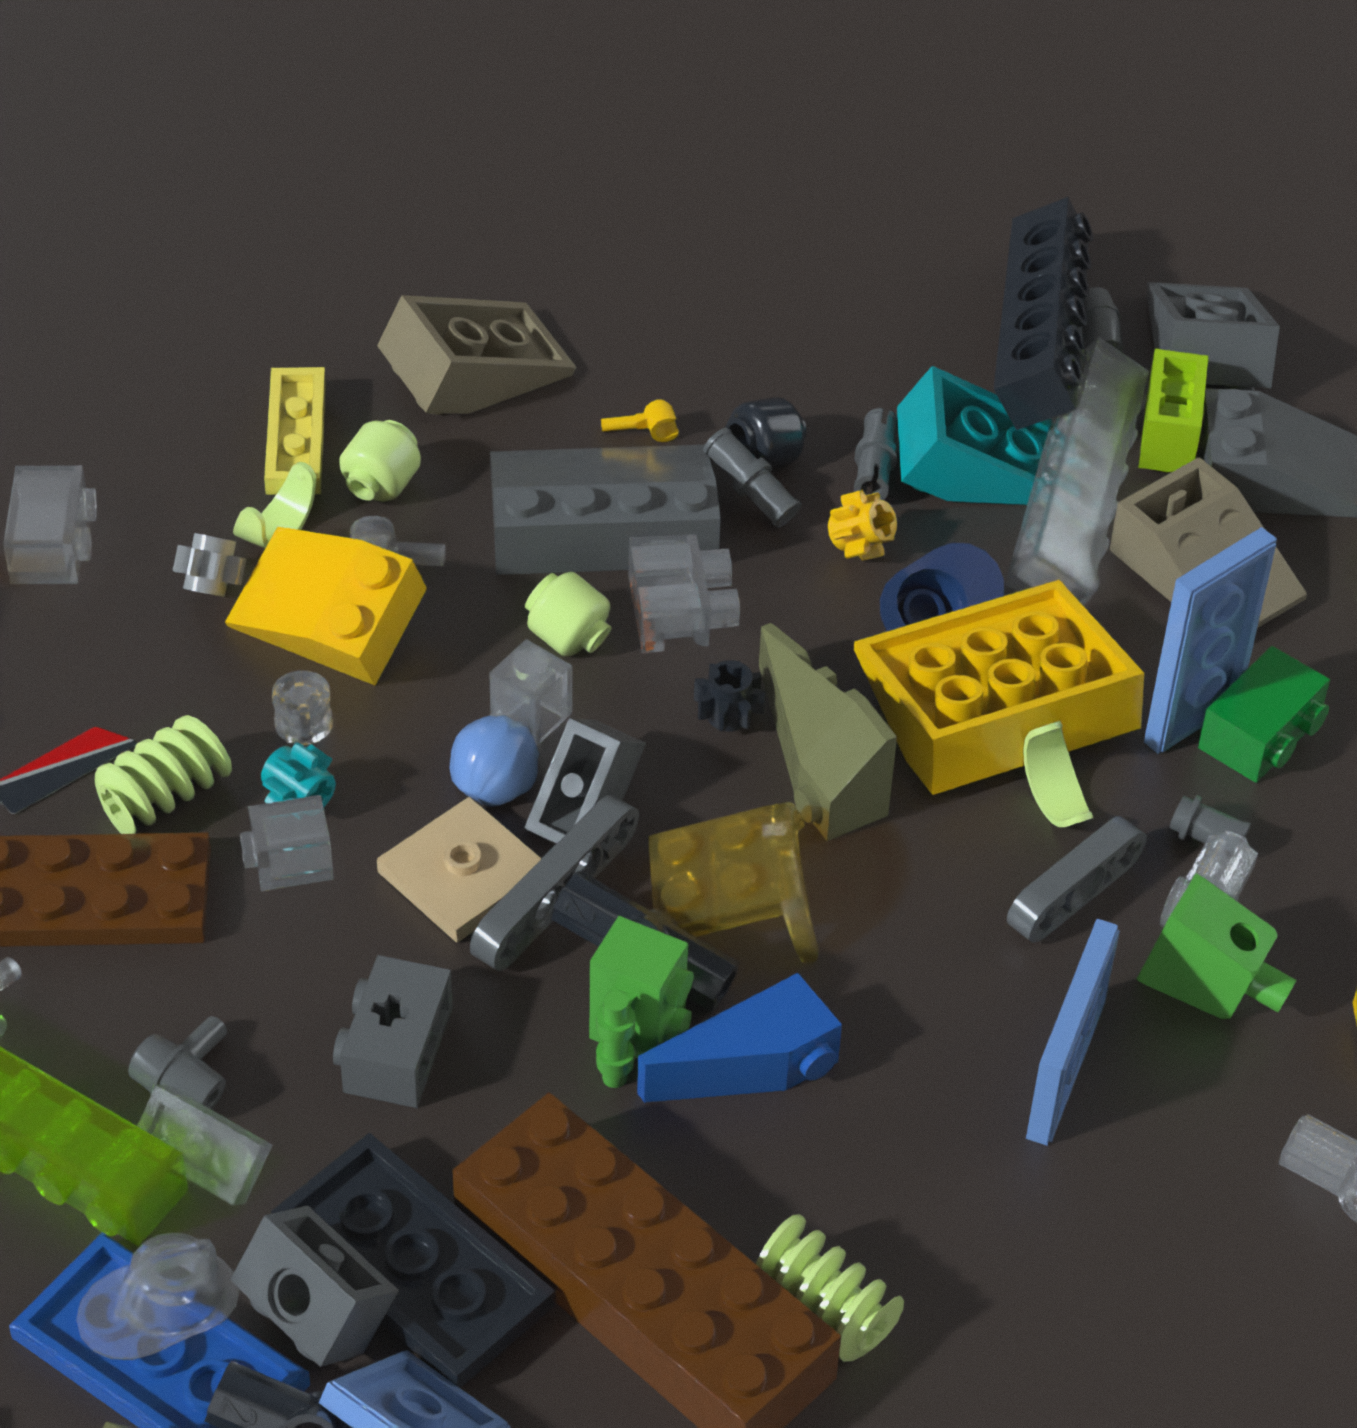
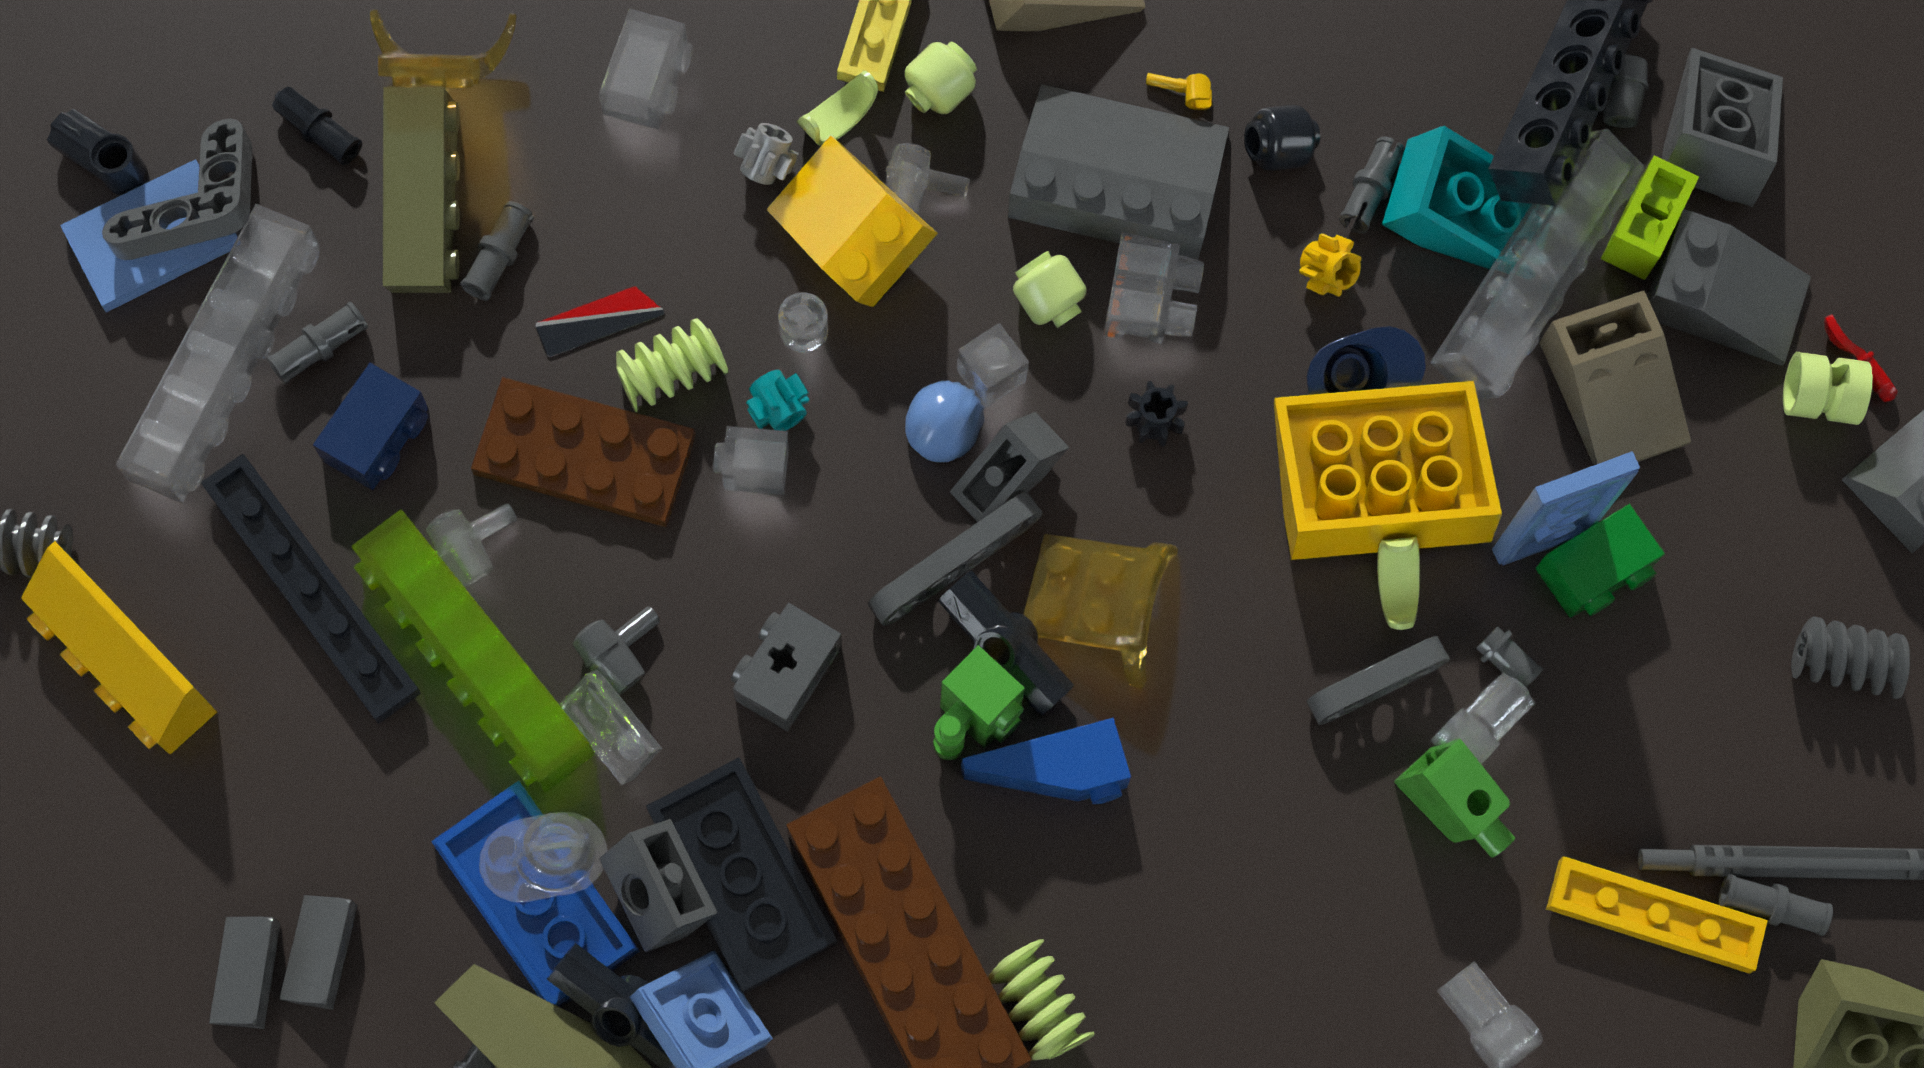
camera: 15 degrees right, 25 degrees up
(458, 867) = (887, 519): tan plate -> none
(752, 477) = (1253, 184): dark grey pin -> none
(830, 739) = (1219, 502): olive wedge -> none
(1072, 1032) = (1312, 838): medium blue tile -> none

